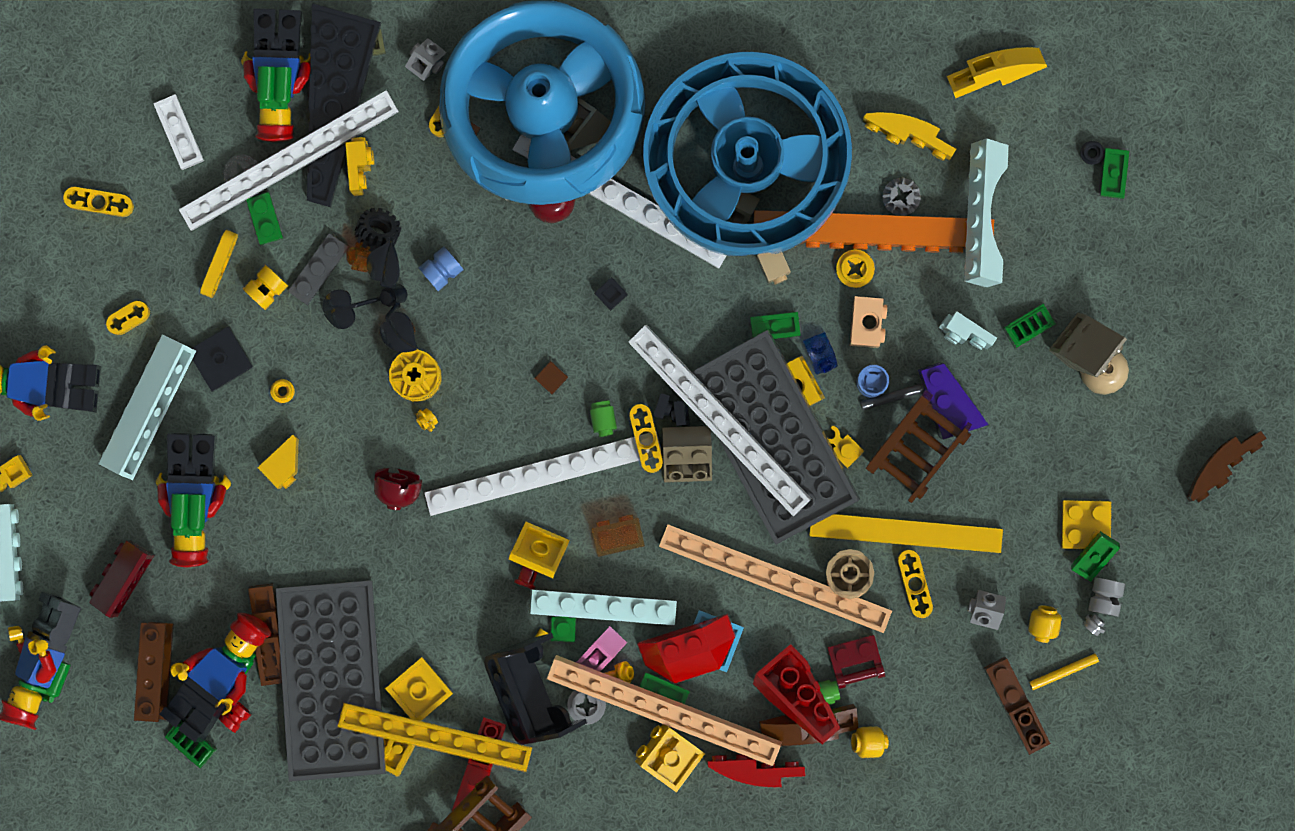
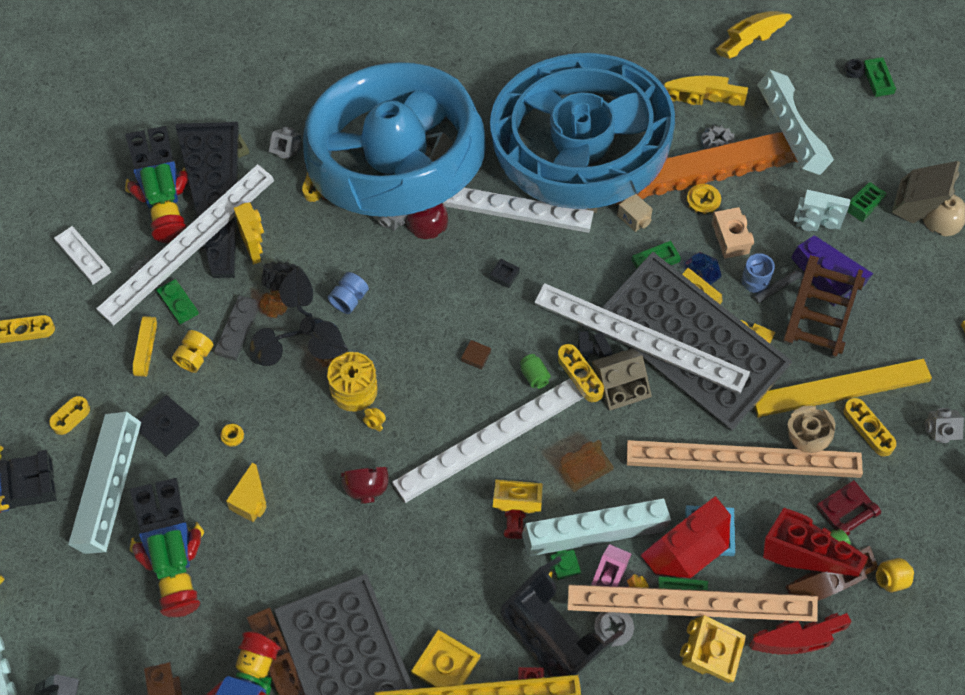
camera: 20 degrees left, 25 degrees down
(120, 578) = (115, 646): dark red slope -> none

